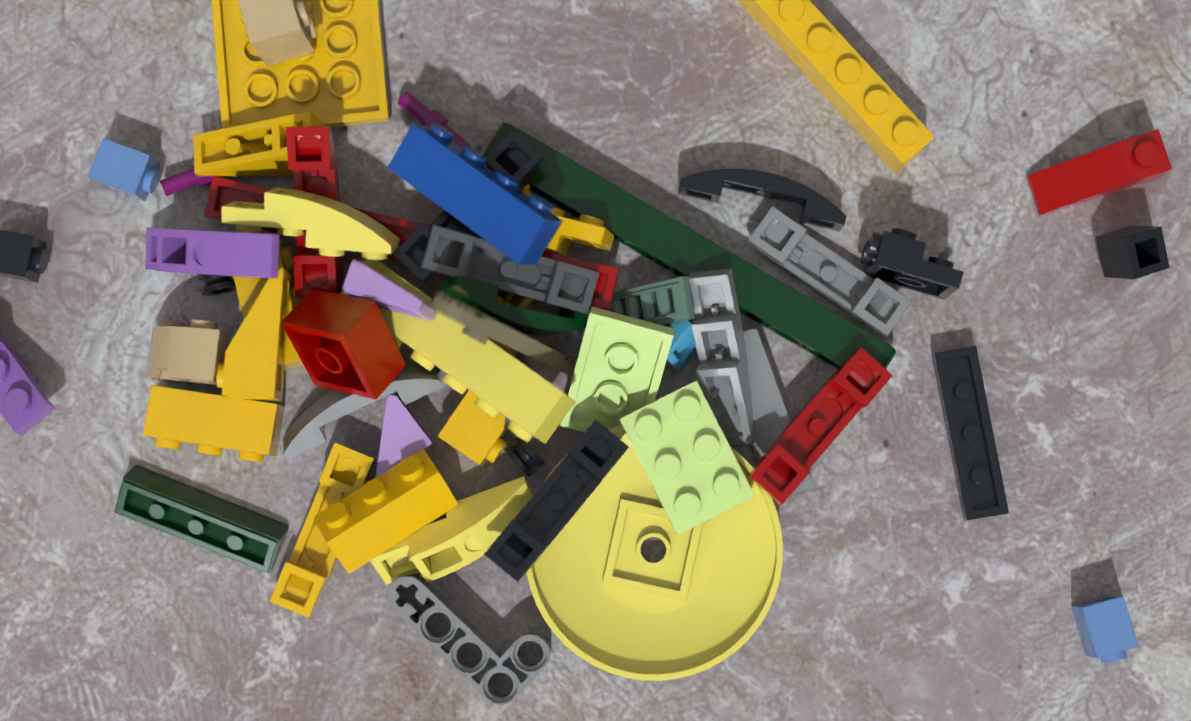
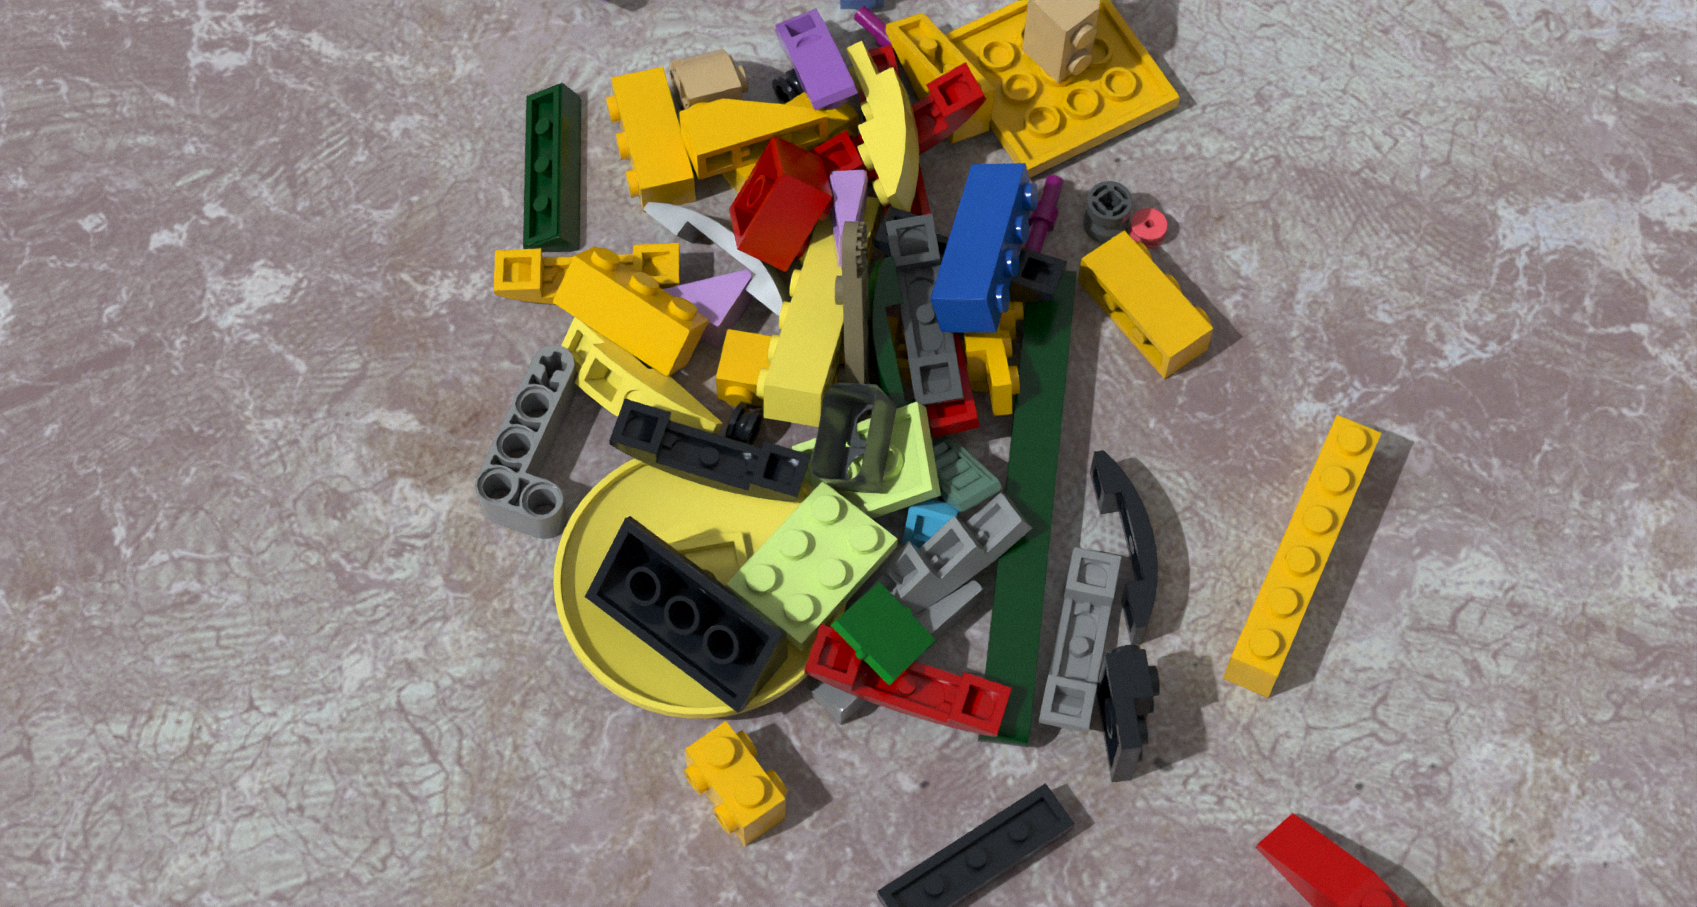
camera: 60 degrees right, 20 degrees down
(459, 76) = (1107, 211): none -> dark grey wheel
(478, 33) = (1148, 227): none -> coral piece
(555, 78) = (1145, 304): none -> yellow brick
(597, 397) = (838, 424): none -> dark grey piece
(696, 581) = (687, 616): none -> black slope
(775, 427) = (883, 633): none -> green piece
(836, 593) = (742, 792): none -> yellow brick

